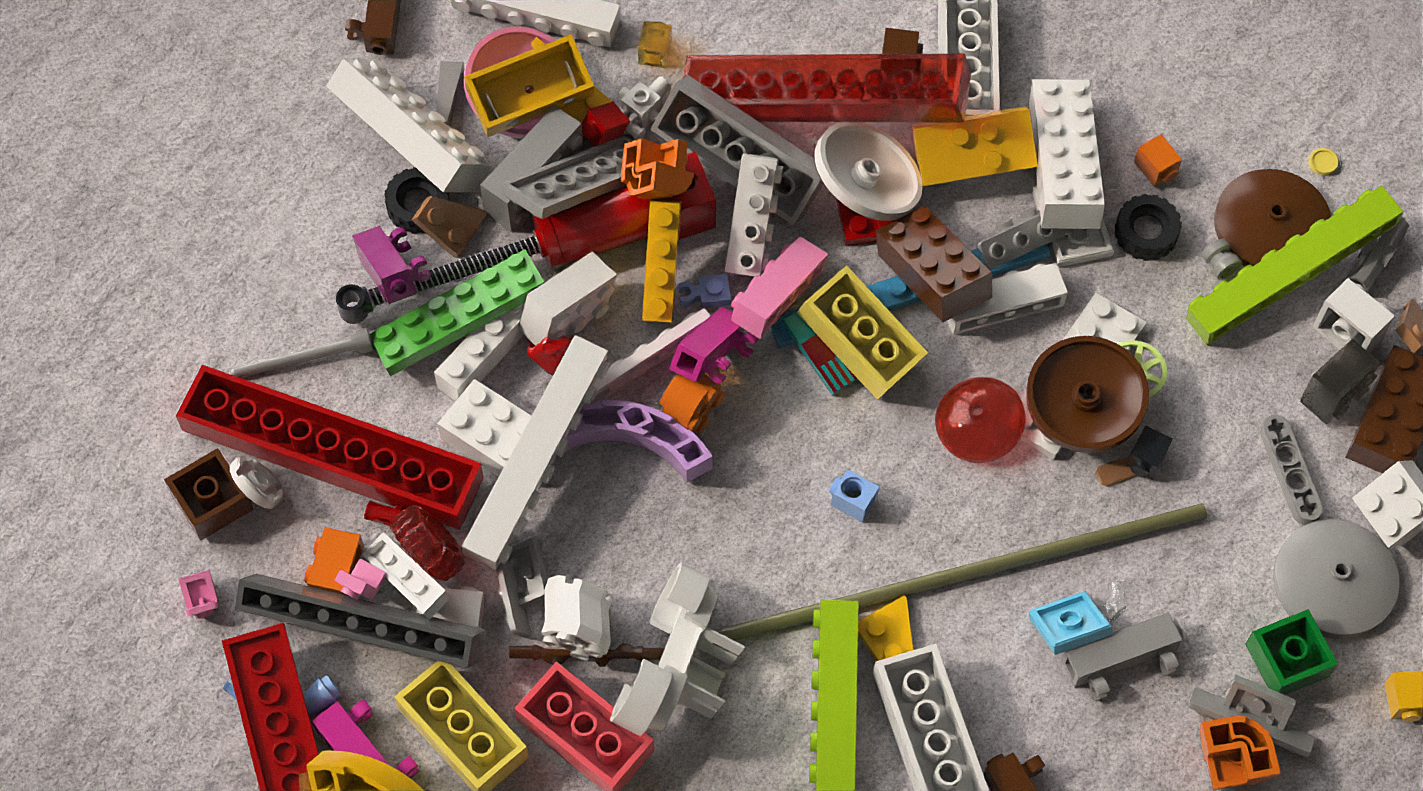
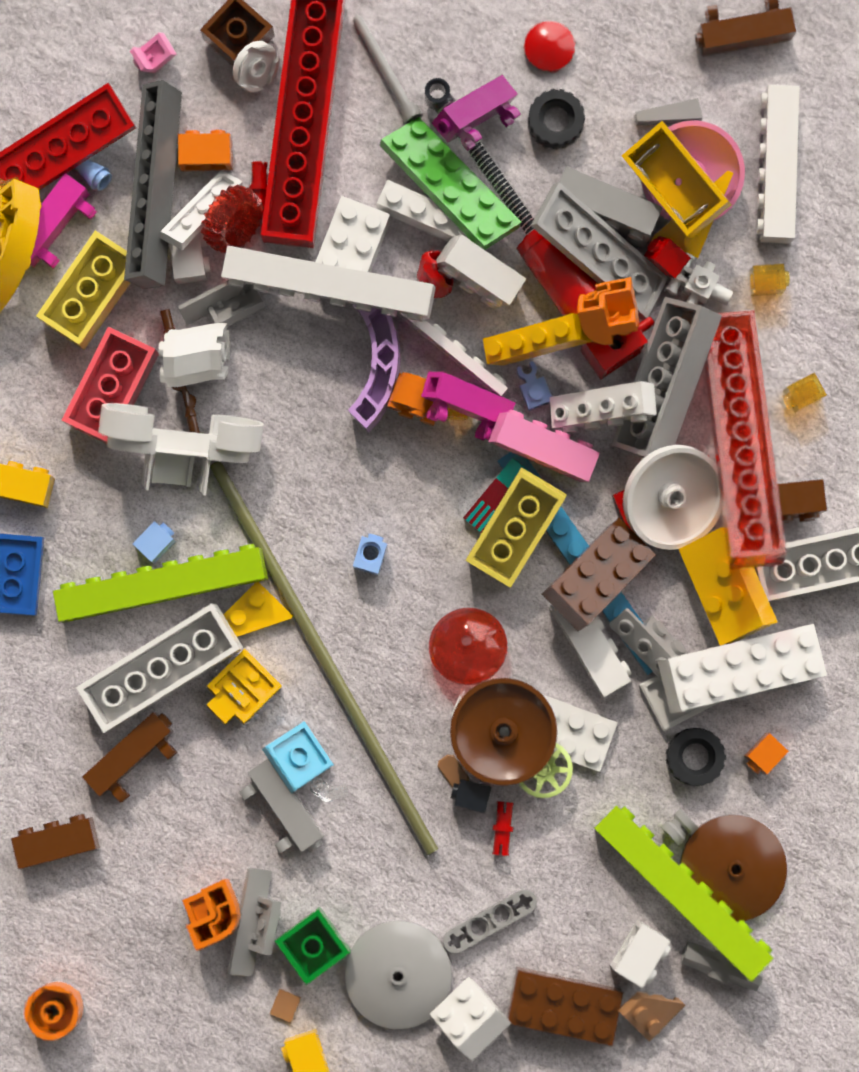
camera: 75 degrees right, 20 degrees up
(333, 190) = (549, 46): none -> red dish
(363, 581) = (185, 175): bright pink bracket -> none
(409, 125) = (619, 88): white brick -> none
(449, 222) = (537, 151): medium nougat wing -> none
(781, 725) = (155, 541): none -> light blue brick
(783, 36) = (803, 393): none -> clear yellow brick
(980, 669) = (241, 689): none -> yellow piece
(1190, 432) = (502, 828): none -> red pin
(1323, 161) = (810, 904): light yellow piece -> none
(1340, 382) = (576, 950): clear smoke brick -> none
(1353, 709) = (285, 1005): none -> medium nougat piece

